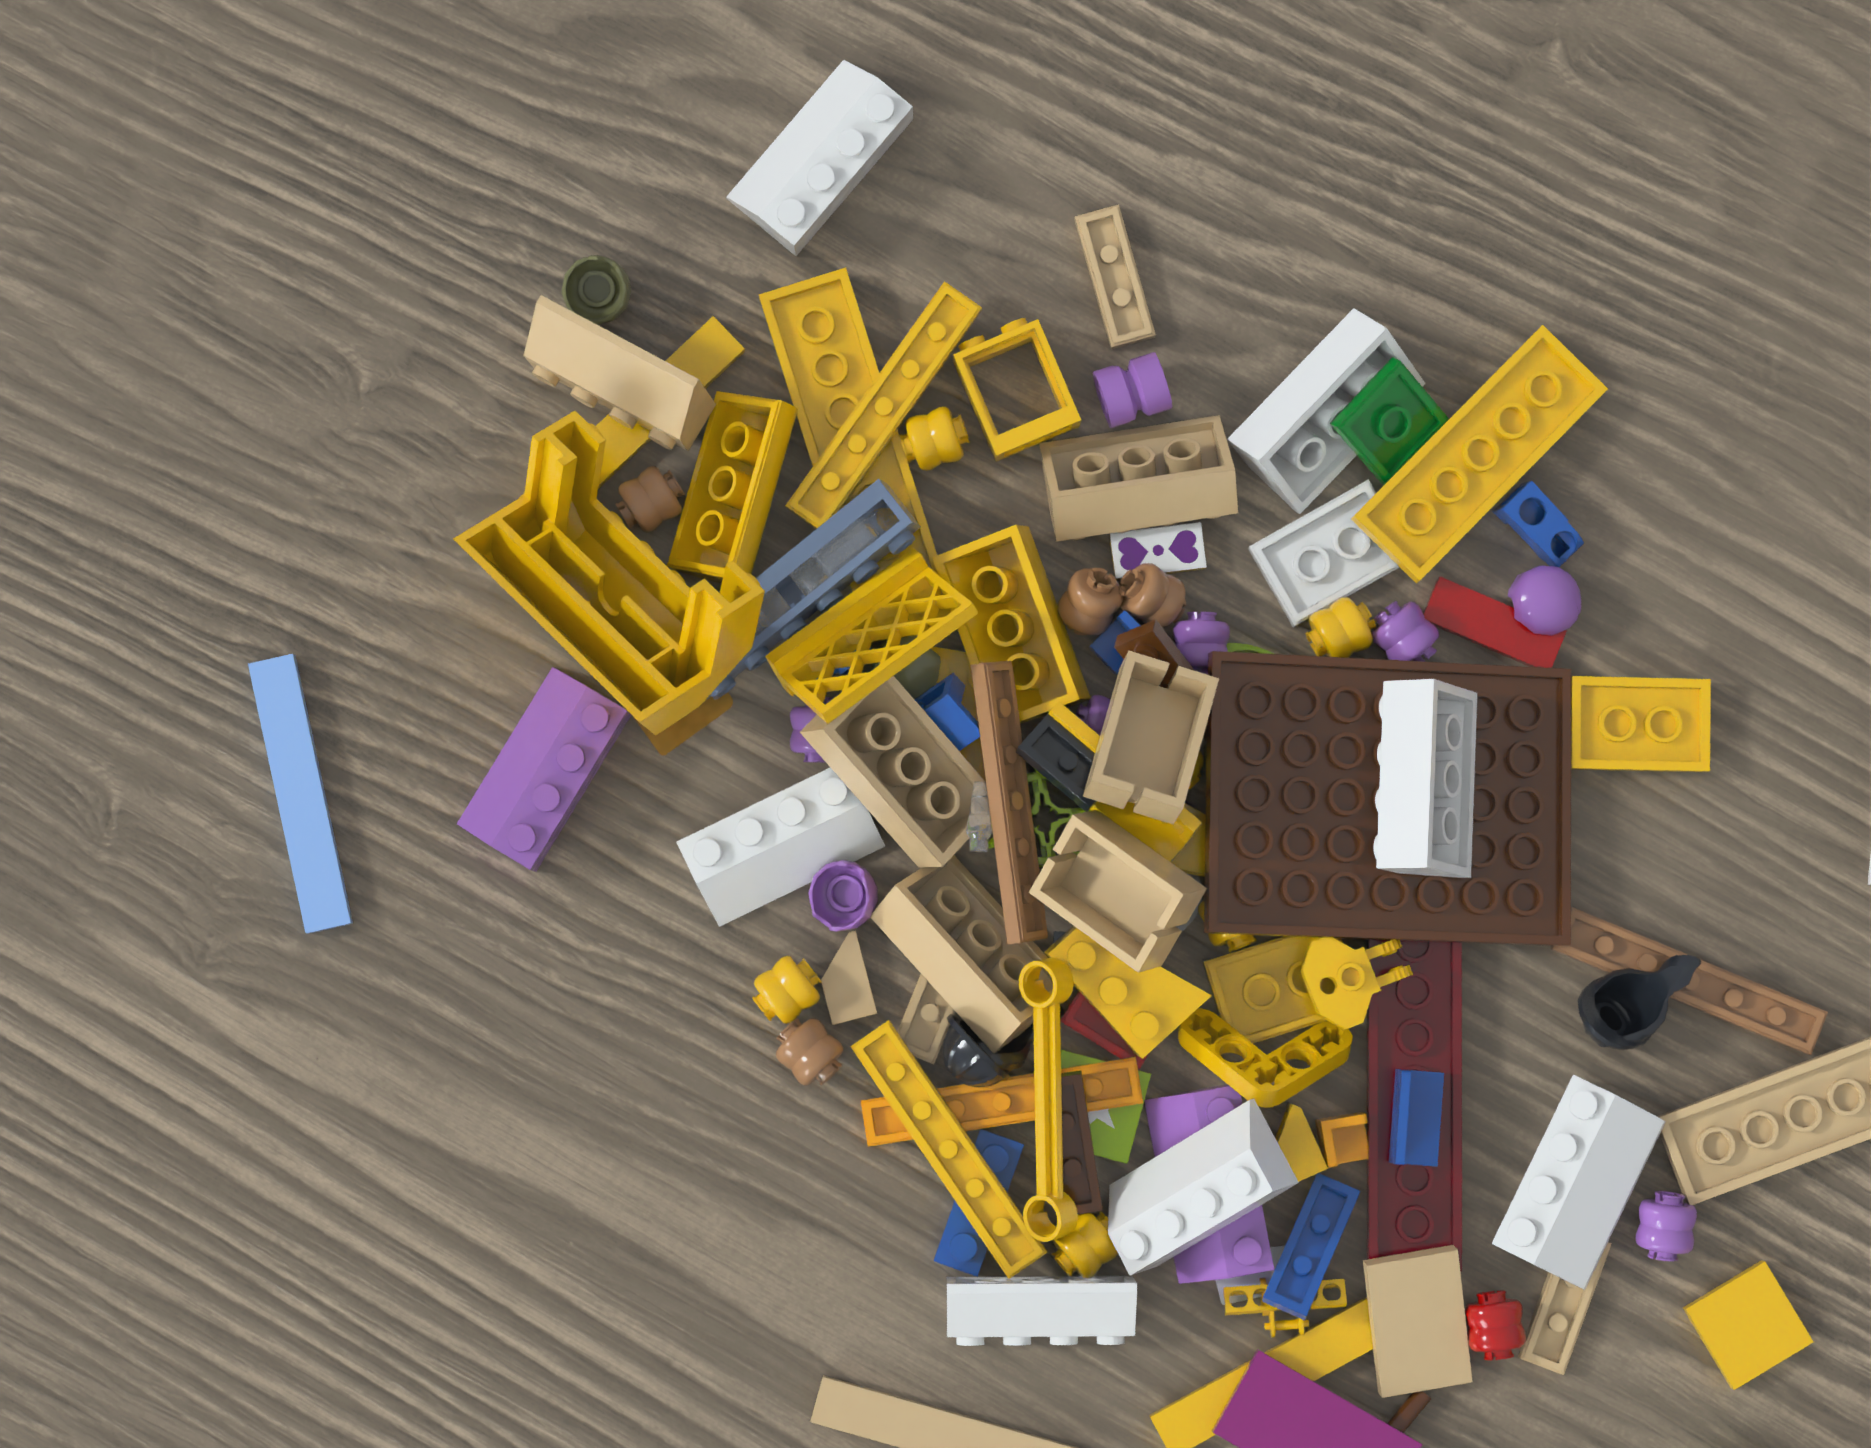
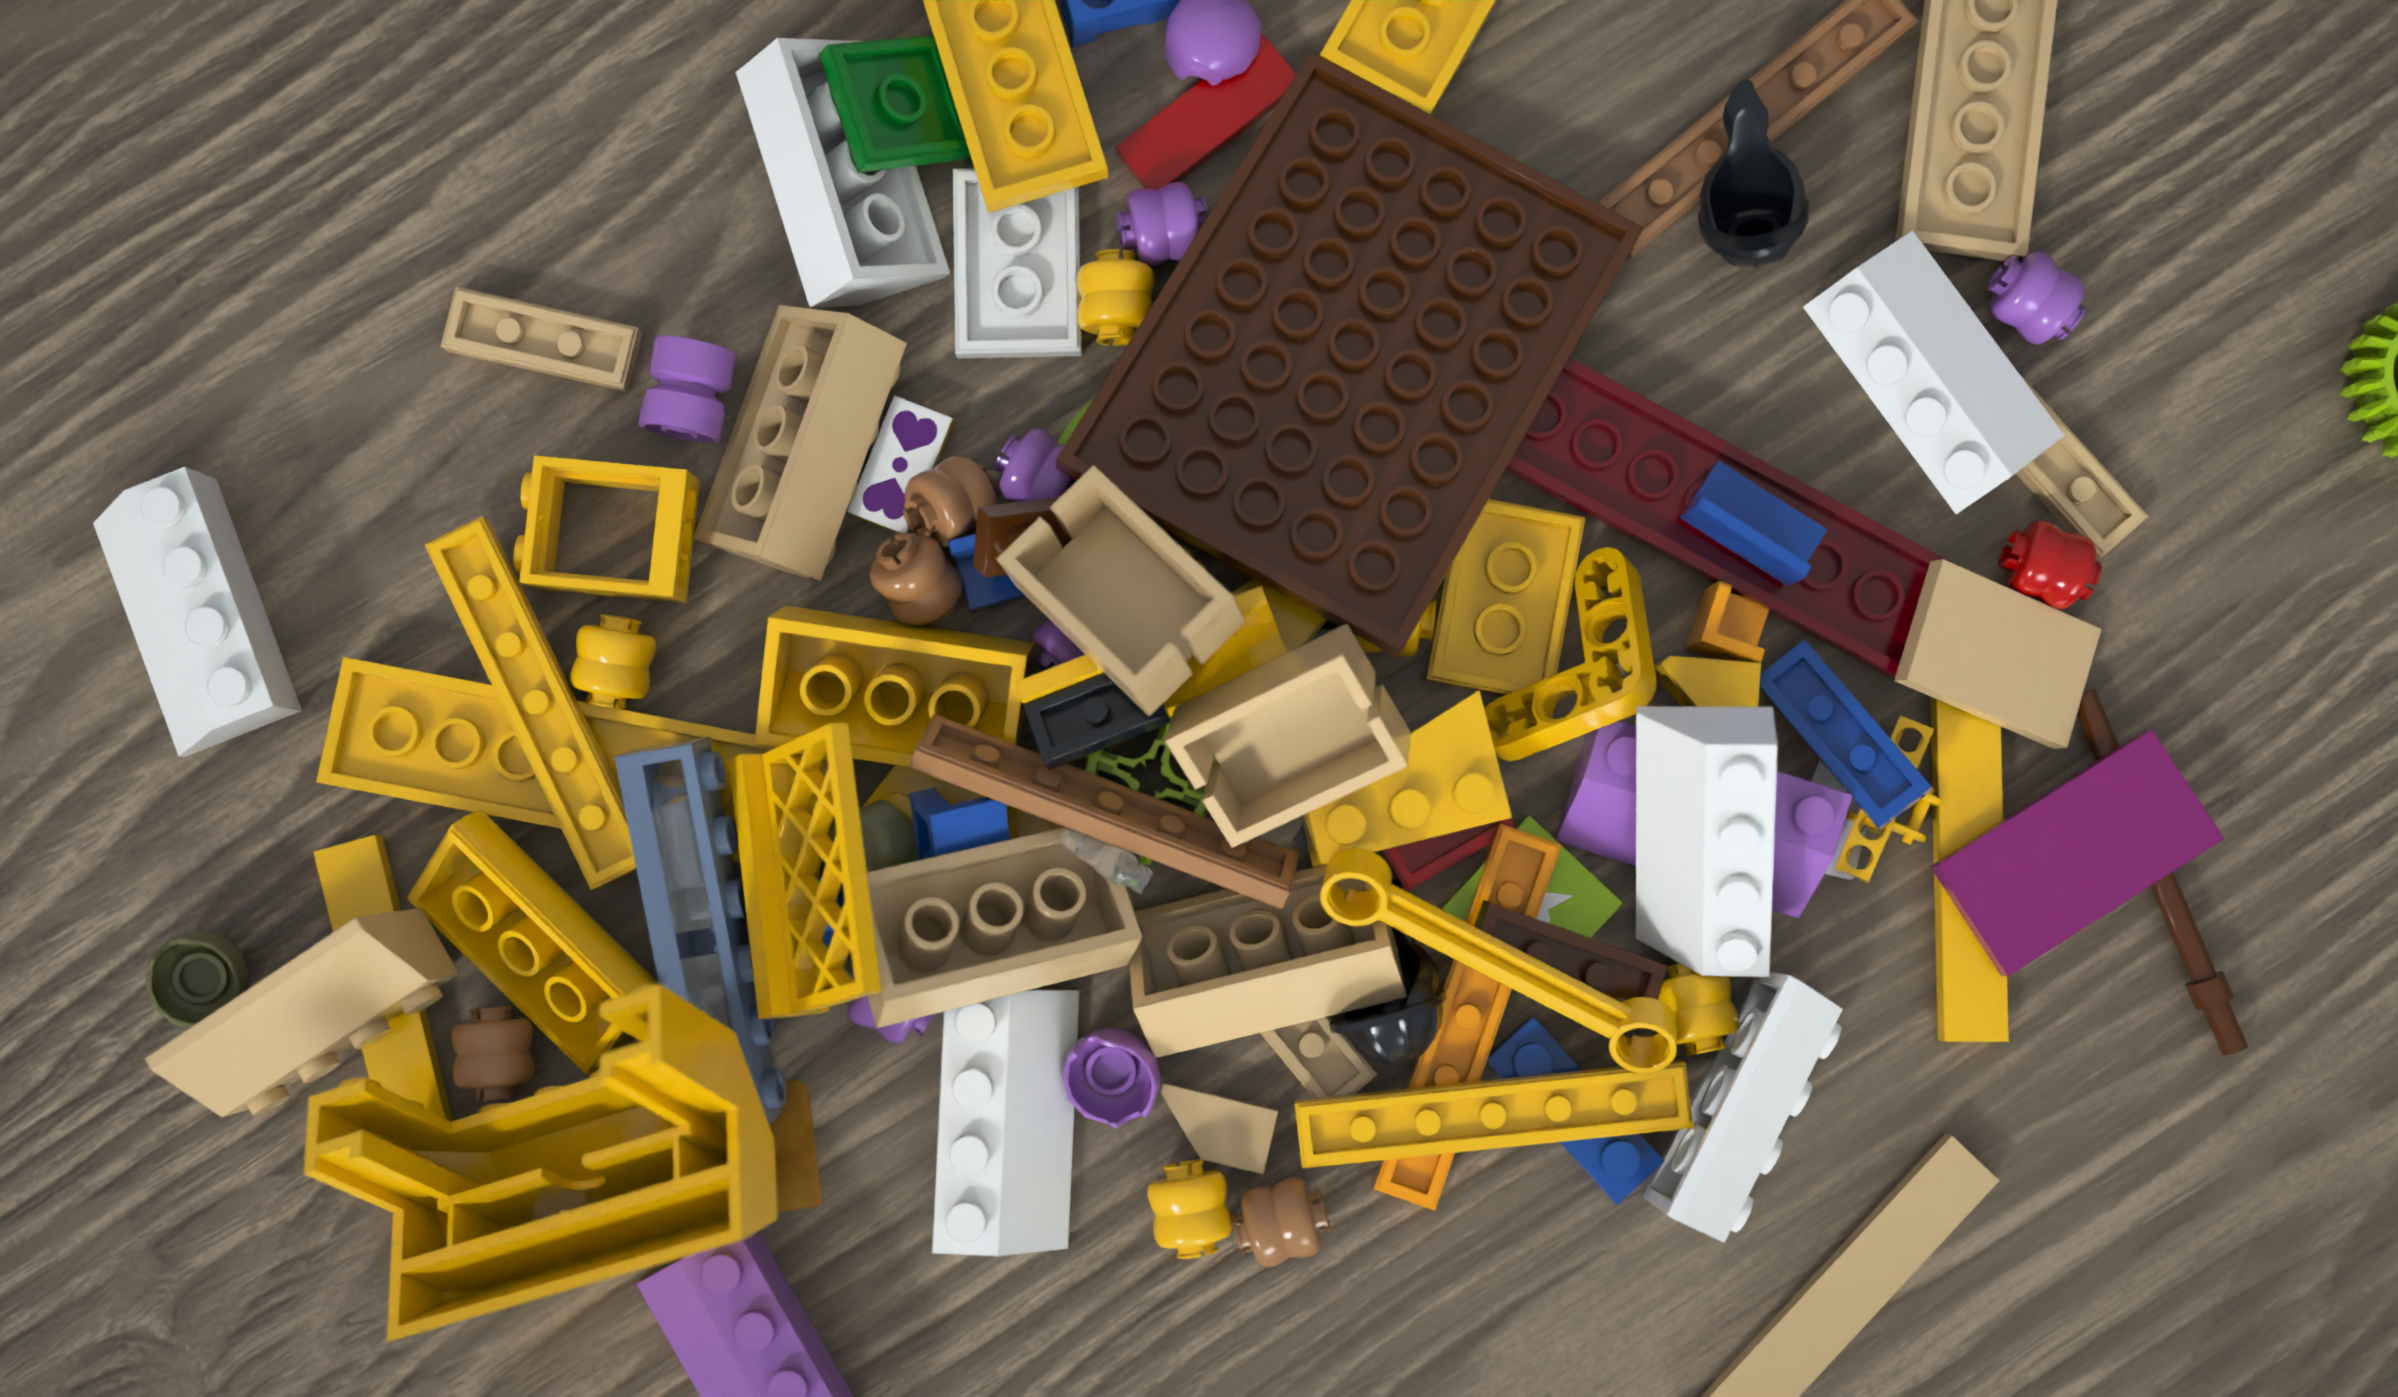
camera: 60 degrees left, 0 degrees up
(1351, 976) = (1546, 509): yellow hinge -> none
(1426, 778) = (1352, 286): white slope -> none
(1748, 1324) = (2198, 267): yellow tile -> none

